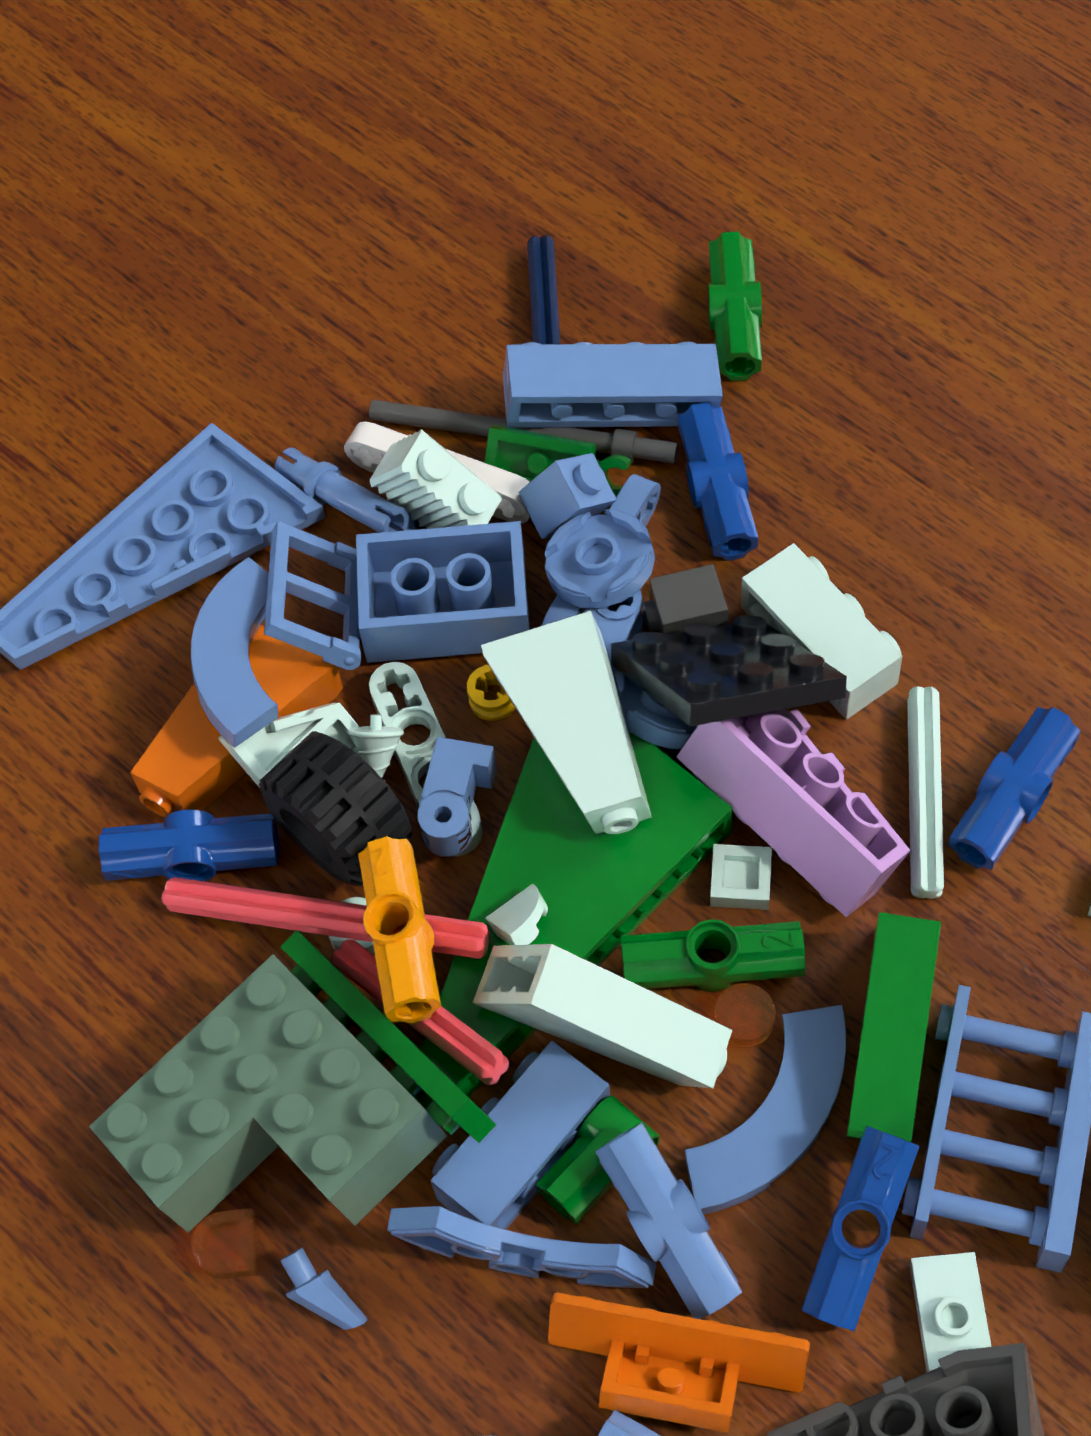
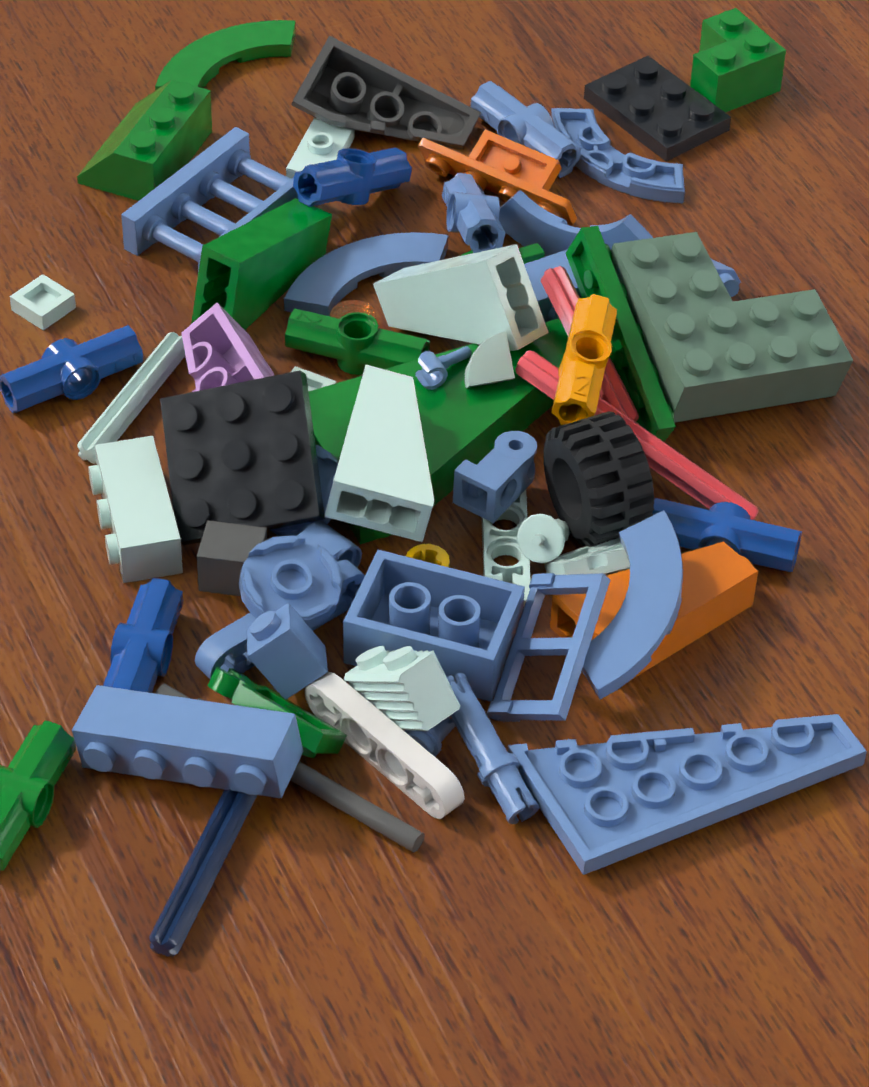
camera: 165 degrees left, 15 degrees down
(590, 893) = (434, 368): none -> medium blue hand

